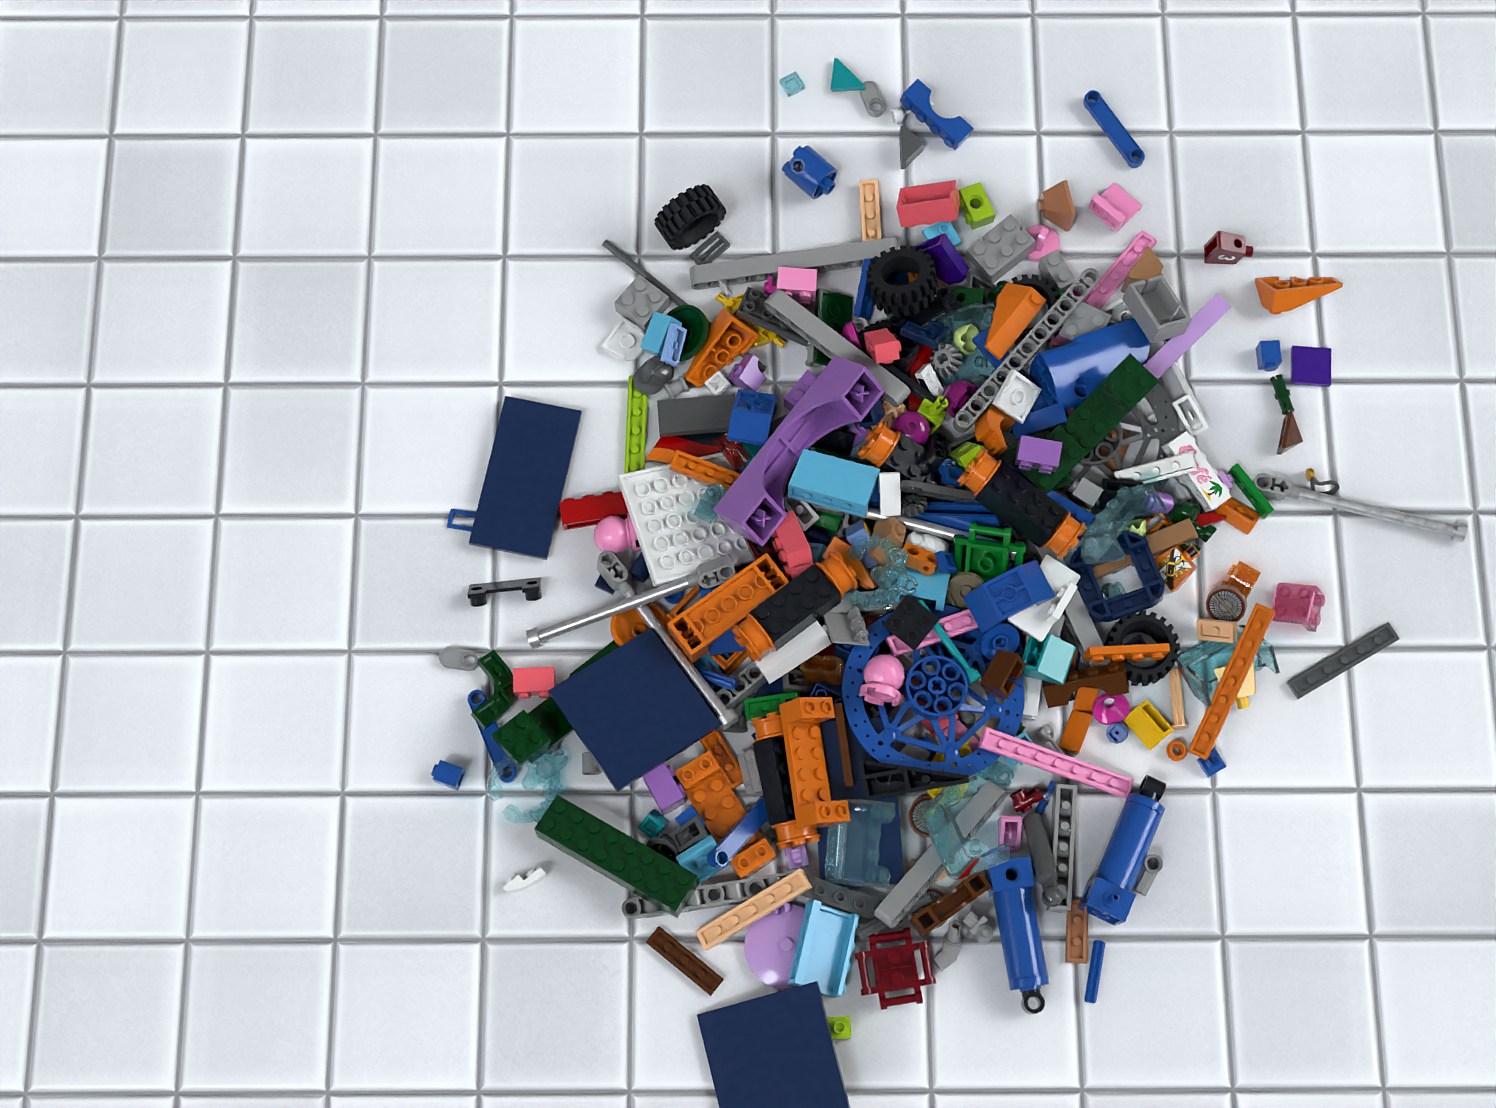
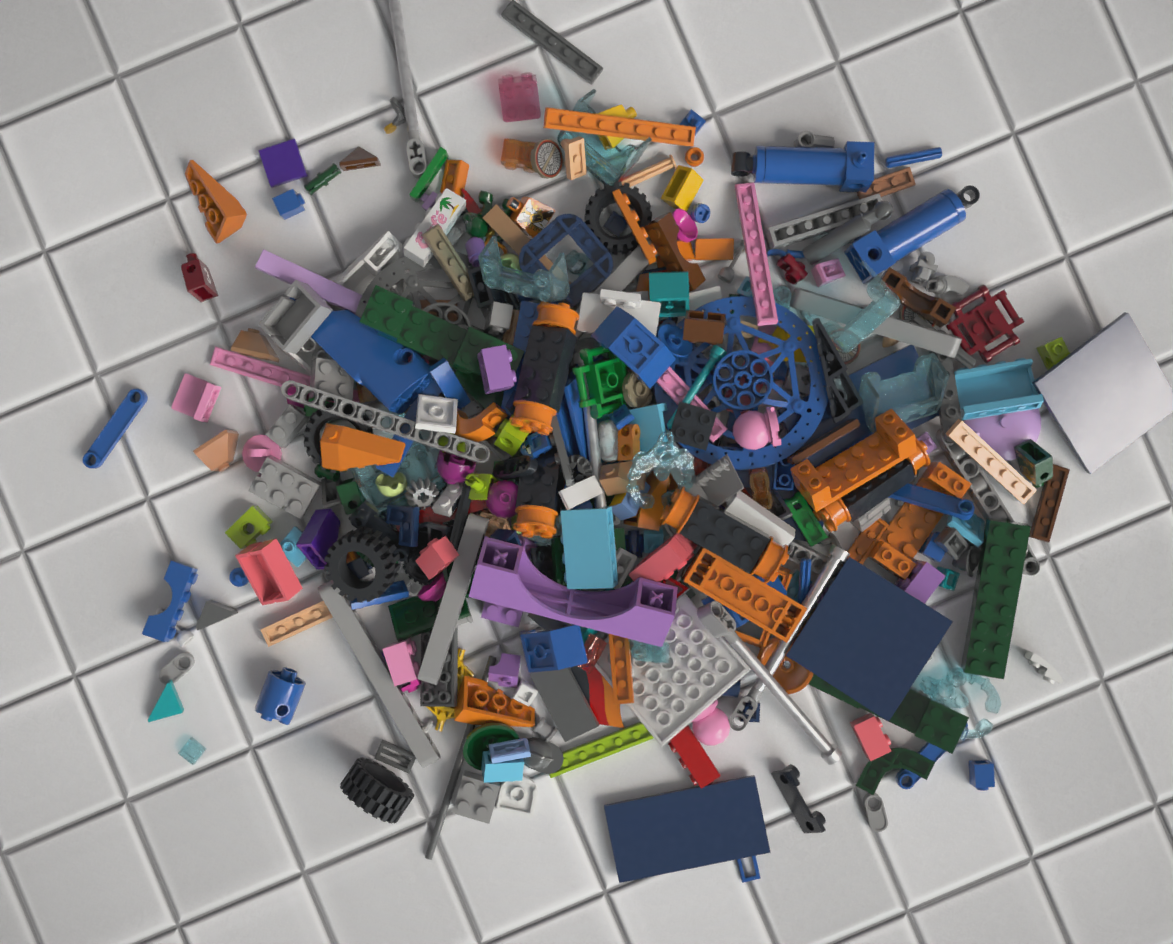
camera: 115 degrees left, 15 degrees up
(726, 955) = (1034, 462): none -> torso
(933, 177) = (238, 577): none -> blue tile

